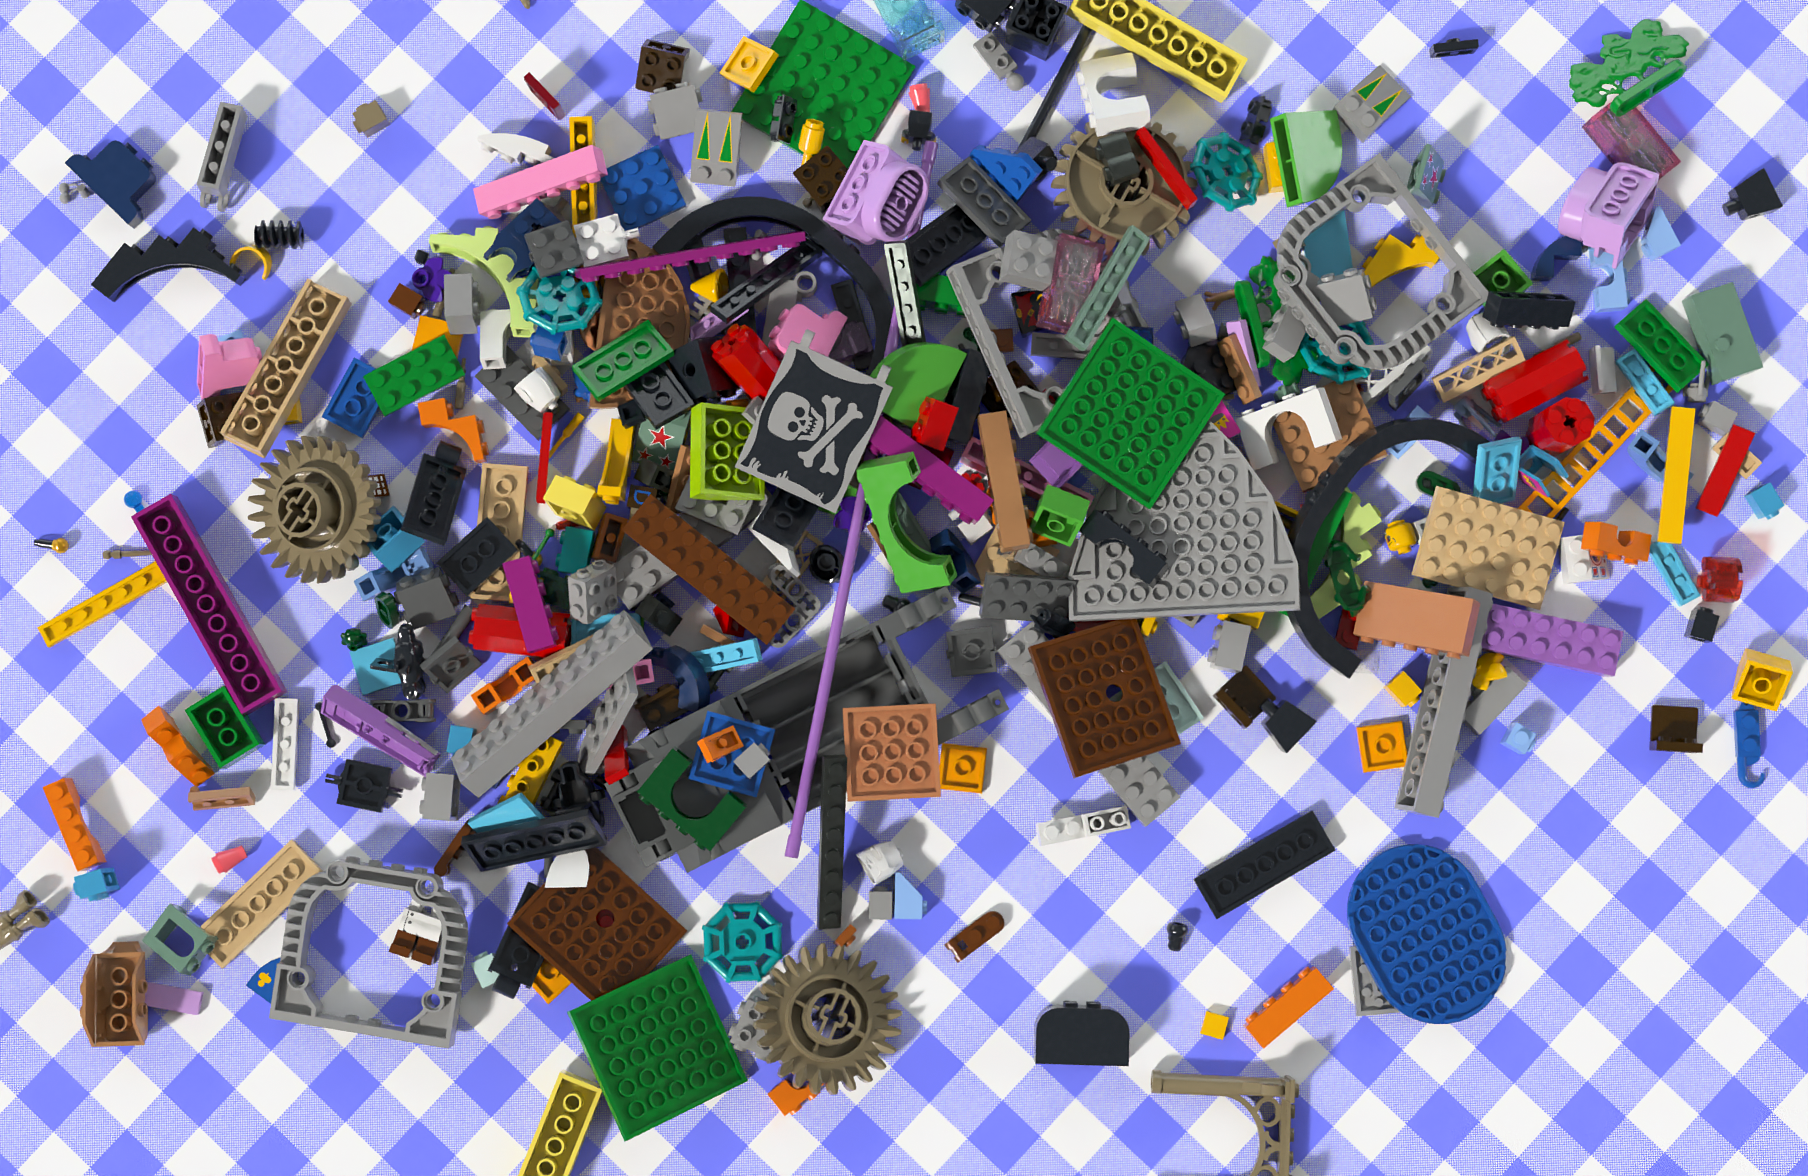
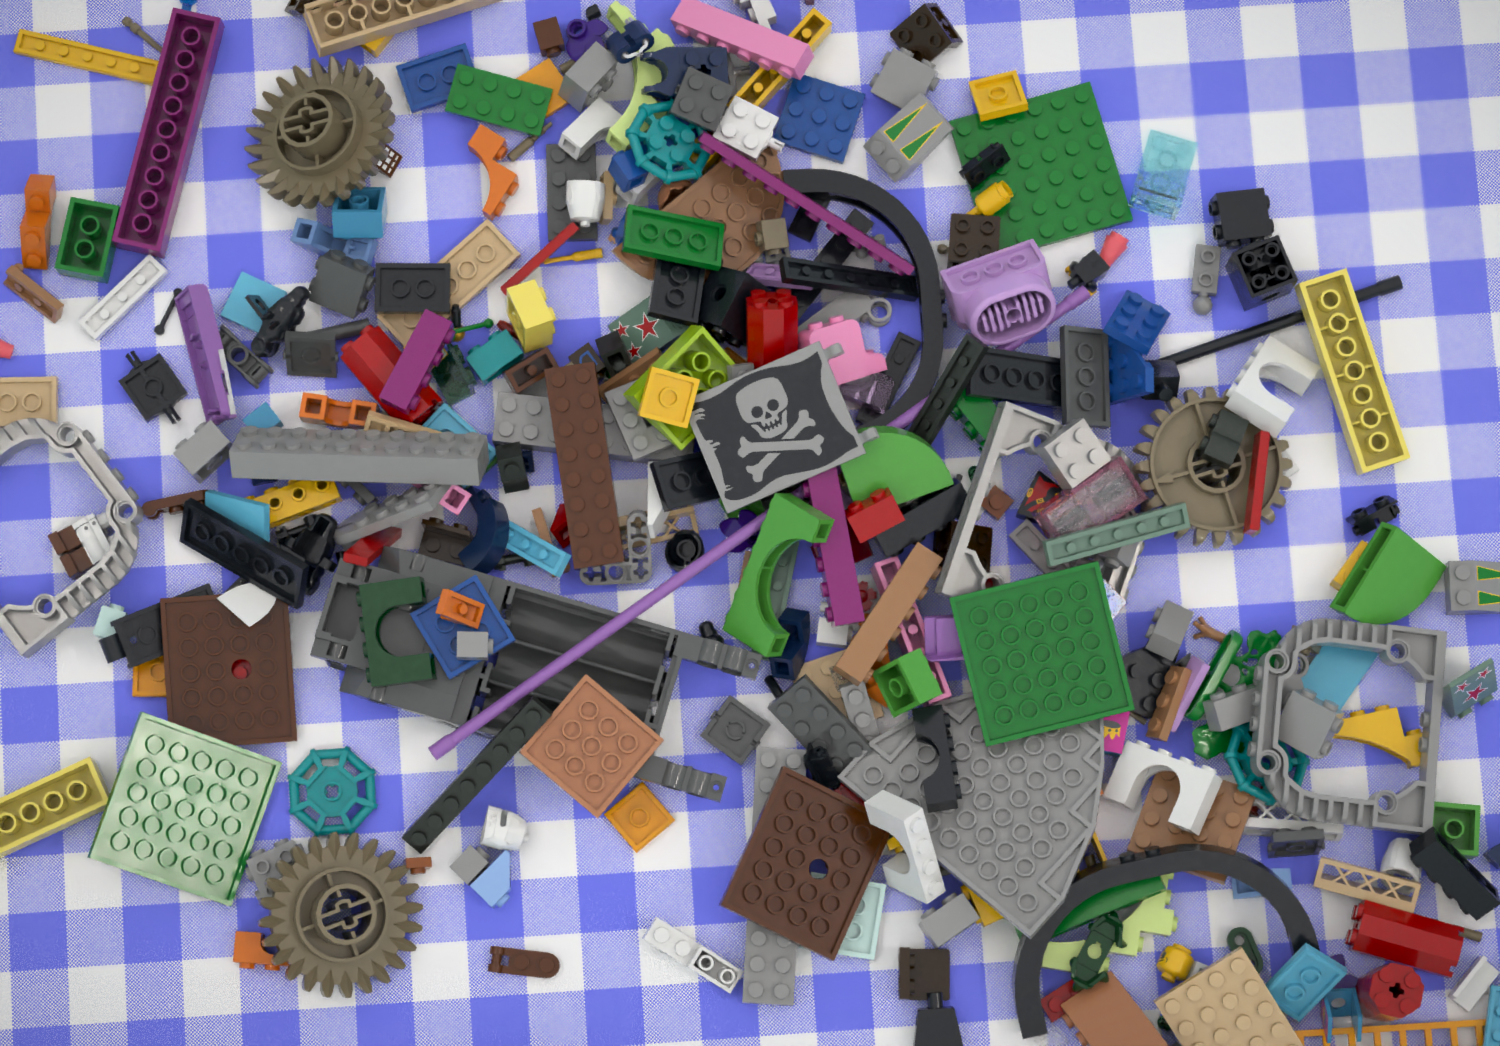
camera: 40 degrees right, 5 degrees down
(354, 639) = (255, 264): dark green plant -> none
(387, 609) = (302, 264): dark green plate -> none
(435, 494) = (425, 208): black hinge -> none
(466, 259) = (634, 38): none -> dark blue piece
(592, 592) = (476, 398): light grey brick -> none
(617, 463) = (594, 316): yellow arch -> none
(630, 414) = (639, 286): black plate -> none
(686, 298) = (771, 236): none -> dark tan brick
(712, 286) = (804, 245): yellow hat -> none
(724, 471) = (668, 397): none -> yellow plate
(984, 133) = (1136, 322): none -> blue plate
(1180, 631) = (918, 871): none -> white arch
(1235, 167) = (1319, 533): teal plate -> none
(1285, 390) = (1189, 754): sand green plate -> none
(1468, 407) = (1330, 910): sand blue plant -> none

